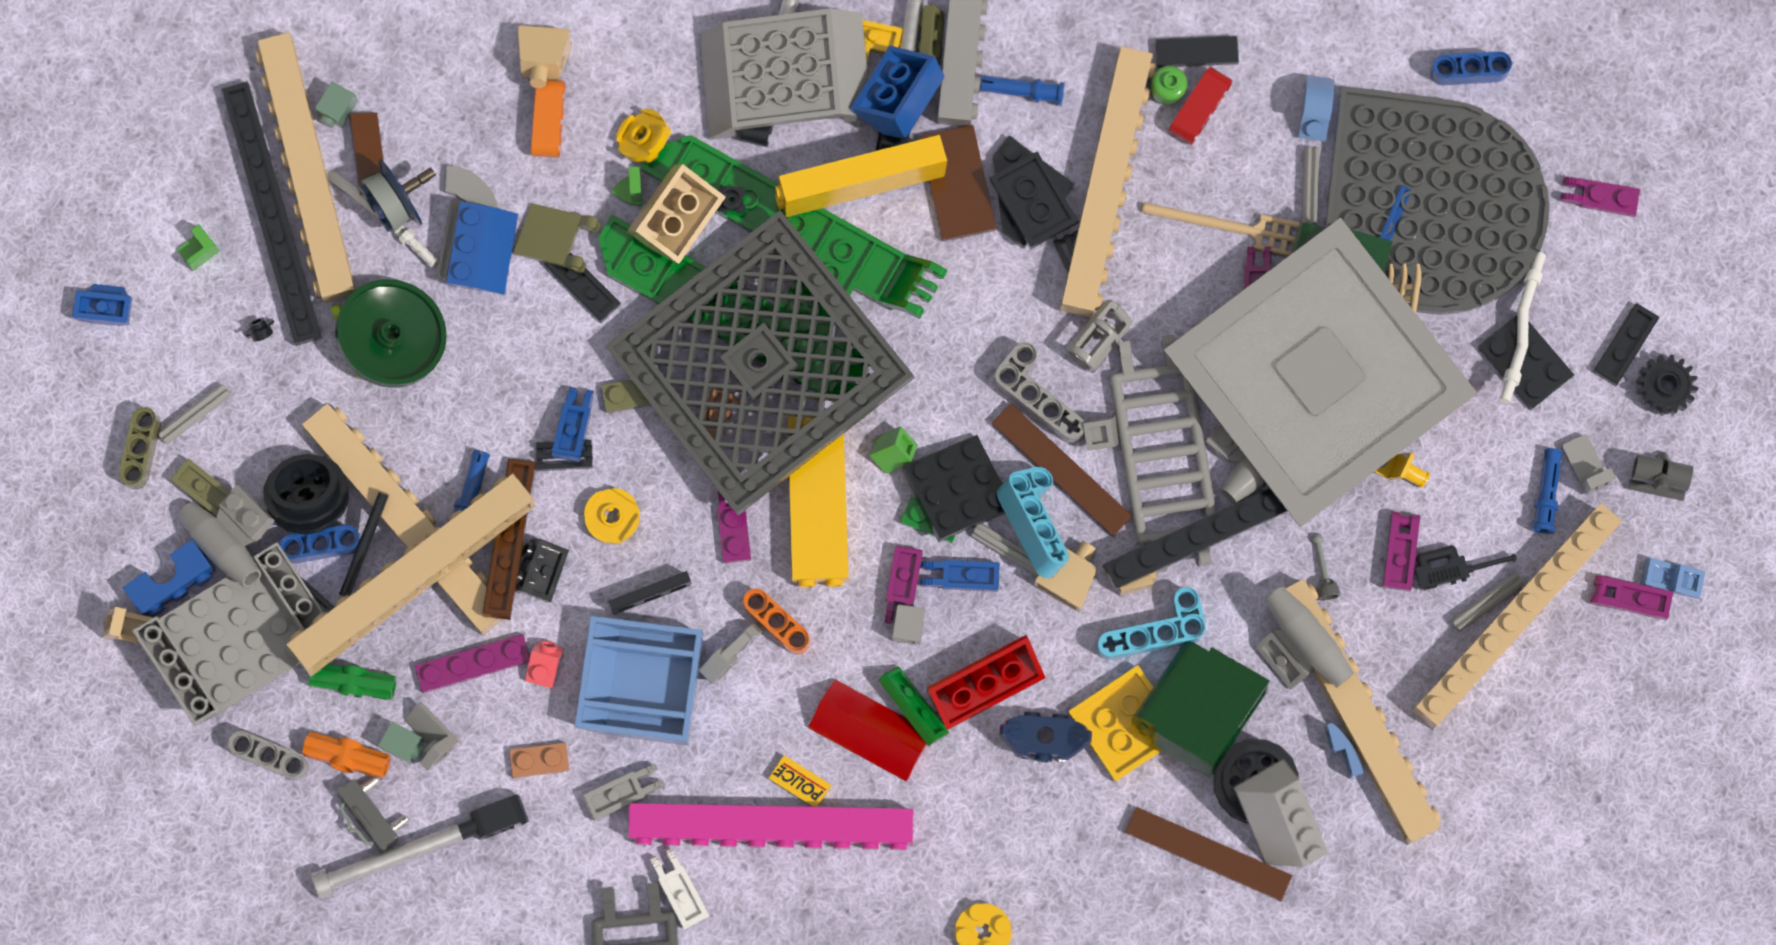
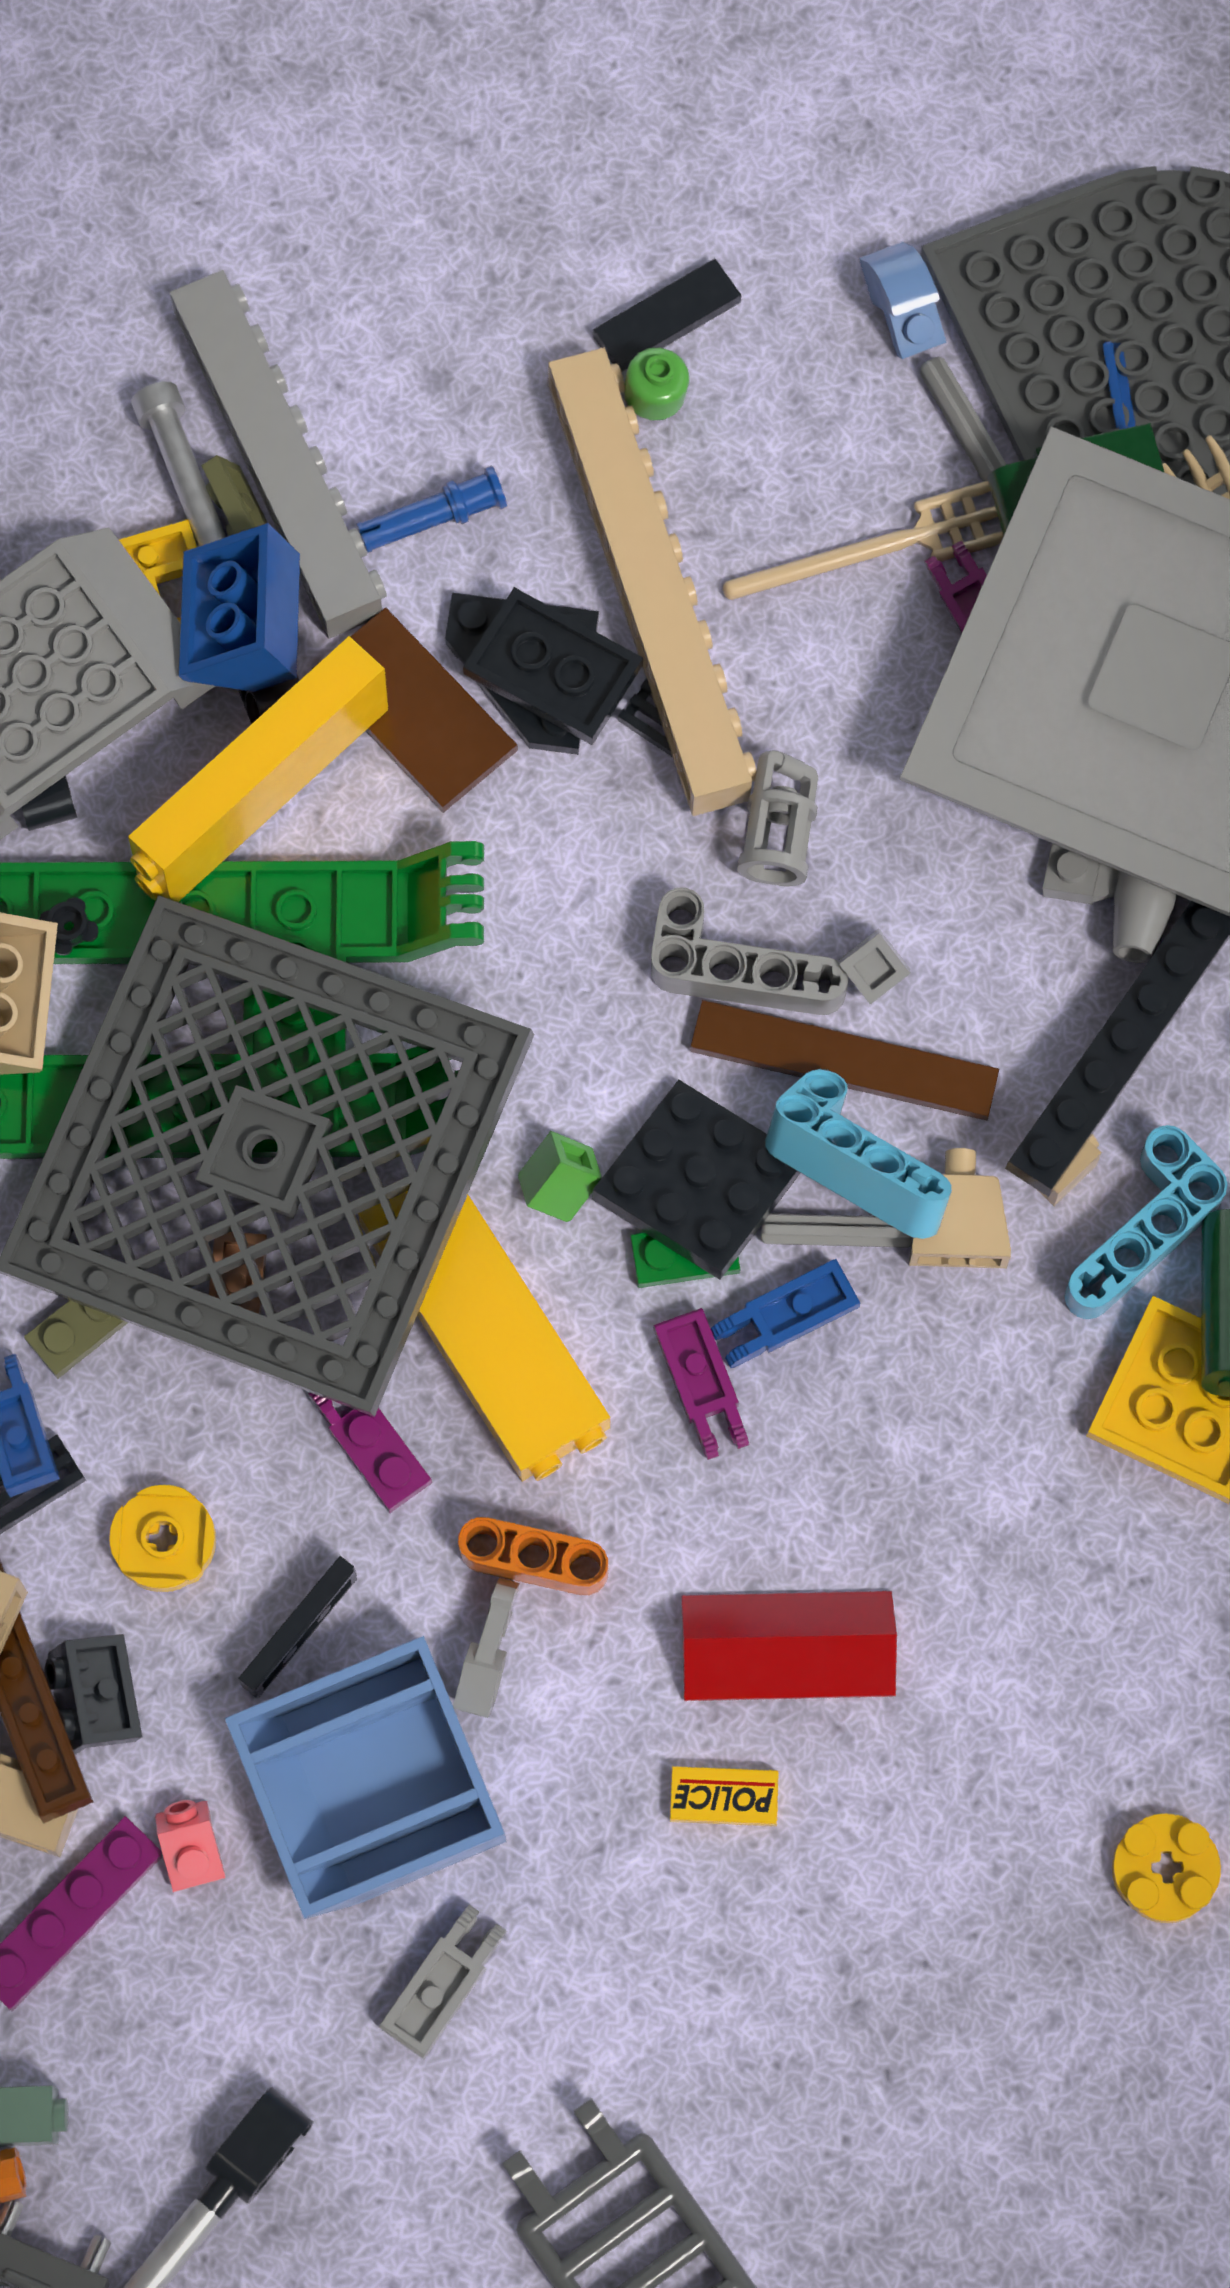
camera: 30 degrees left, 5 degrees down
(434, 733) = (69, 2067): light grey bracket -> none
(539, 760) = (272, 2010): nougat plate -> none
(680, 892) = (635, 2092): white hinge -> none
(771, 825) = (718, 1894): dark pink brick -> none
(908, 625) = (751, 1439): light grey panel -> none
(913, 706) = (835, 1565): green tile -> none
(985, 682) = (929, 1462): red slope -> none
(1068, 739) = (1119, 1474): dark blue piece -> none
(1129, 458) = (1005, 870): light grey bar -> none
(1200, 105) = (723, 390): red beam -> none
(1481, 60) = (1107, 100): blue beam -> none

